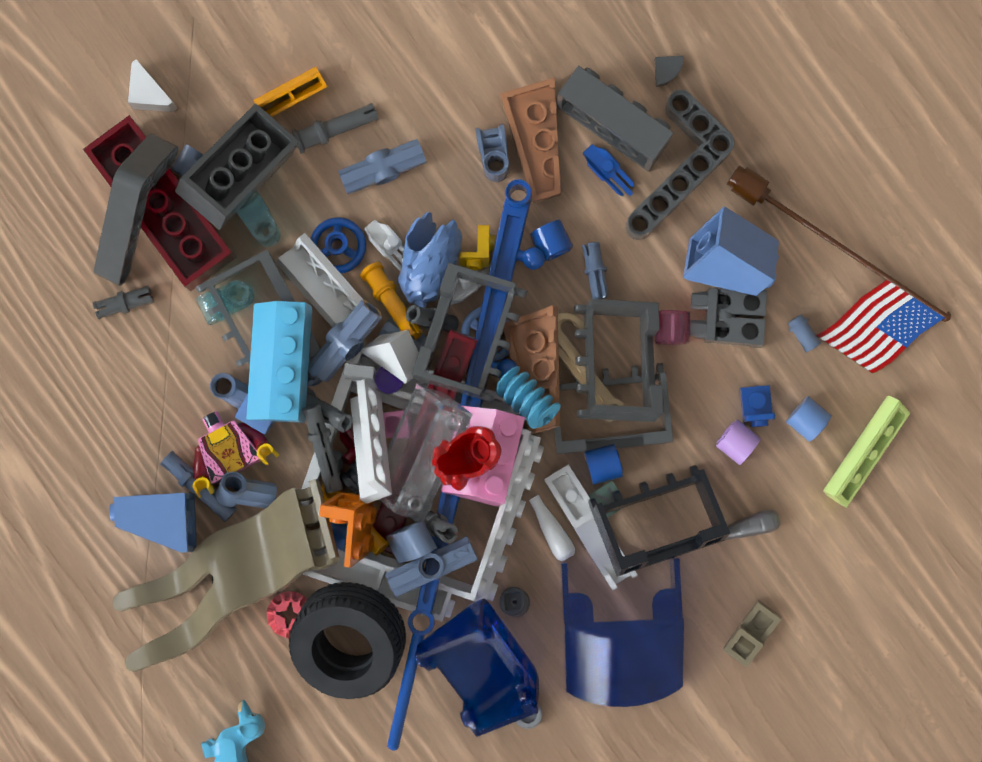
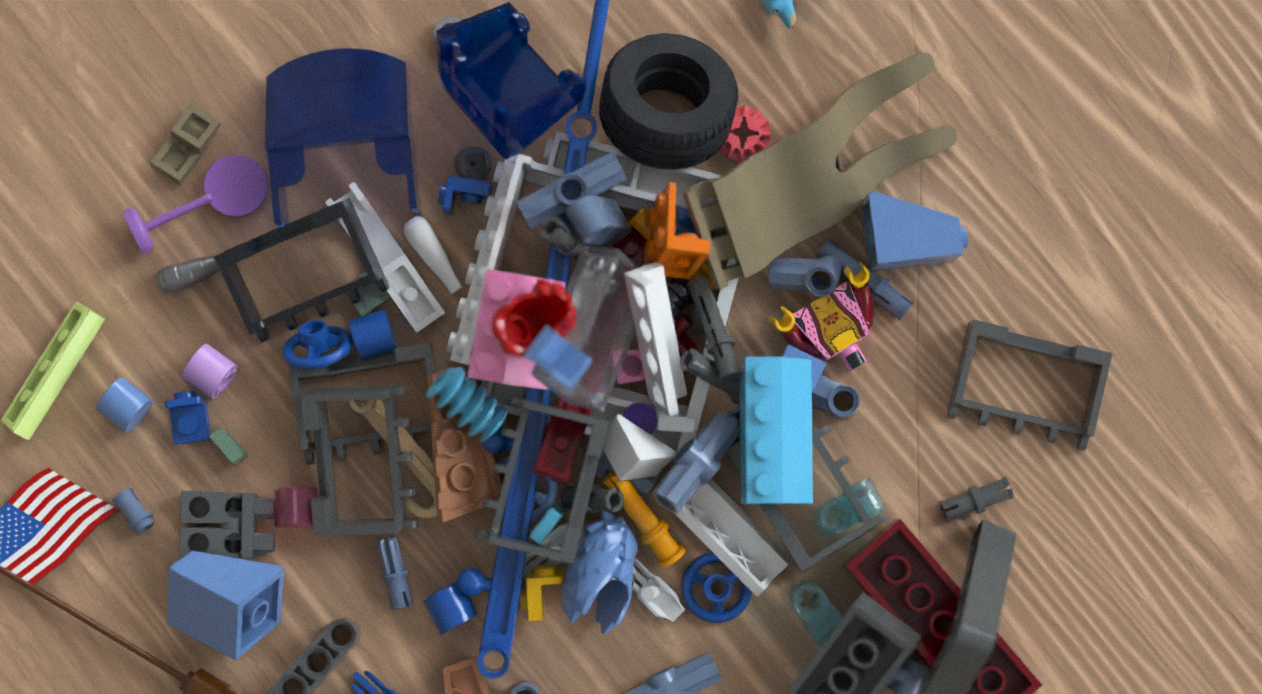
camera: 170 degrees right, 0 degrees up
(19, 377) = (1077, 354): none -> dark grey hinge
(448, 422) = (558, 357): none -> medium blue panel
(469, 300) = (548, 522): none -> medium azure tile
(518, 578) = (470, 191): none -> blue bracket
(648, 462) = (317, 339): none -> blue piece
(714, 595) = (232, 187): none -> medium lavender piece
(724, 380) = (229, 446): none -> sand green tile

